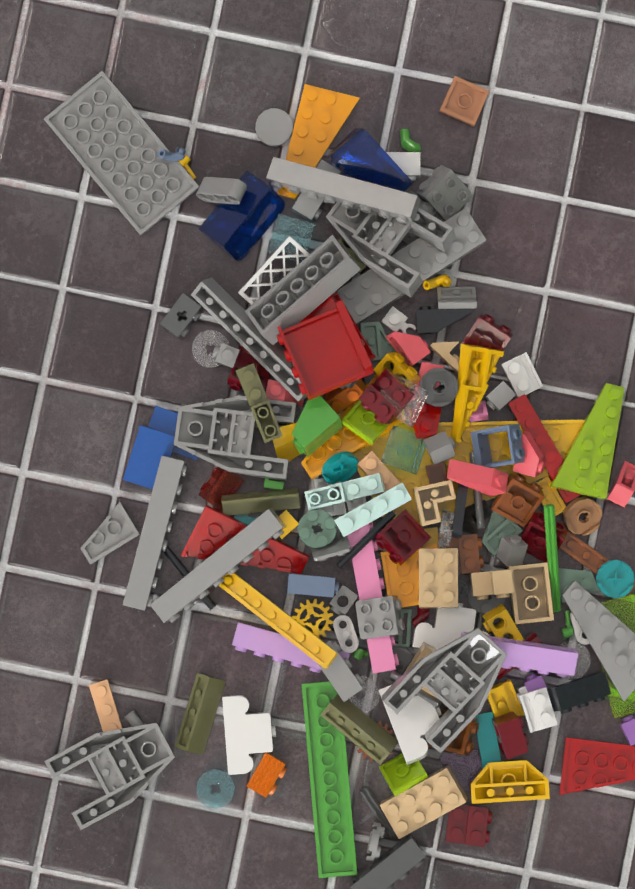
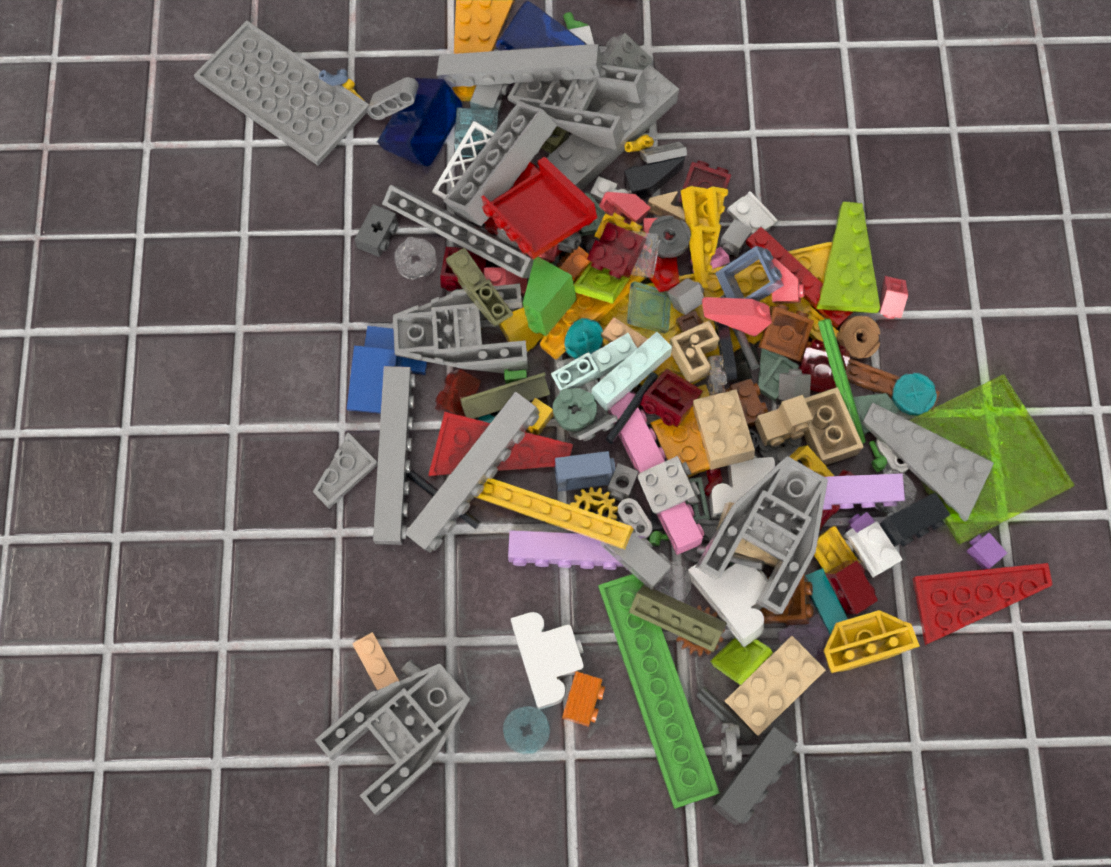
camera: 10 degrees left, 15 degrees down
(200, 714) = (489, 647): olive panel -> none
(225, 354) = (432, 253): light grey brick -> none
(274, 127) = (434, 39): light grey tile -> none
(468, 825) = (833, 704): dark red plate -> none

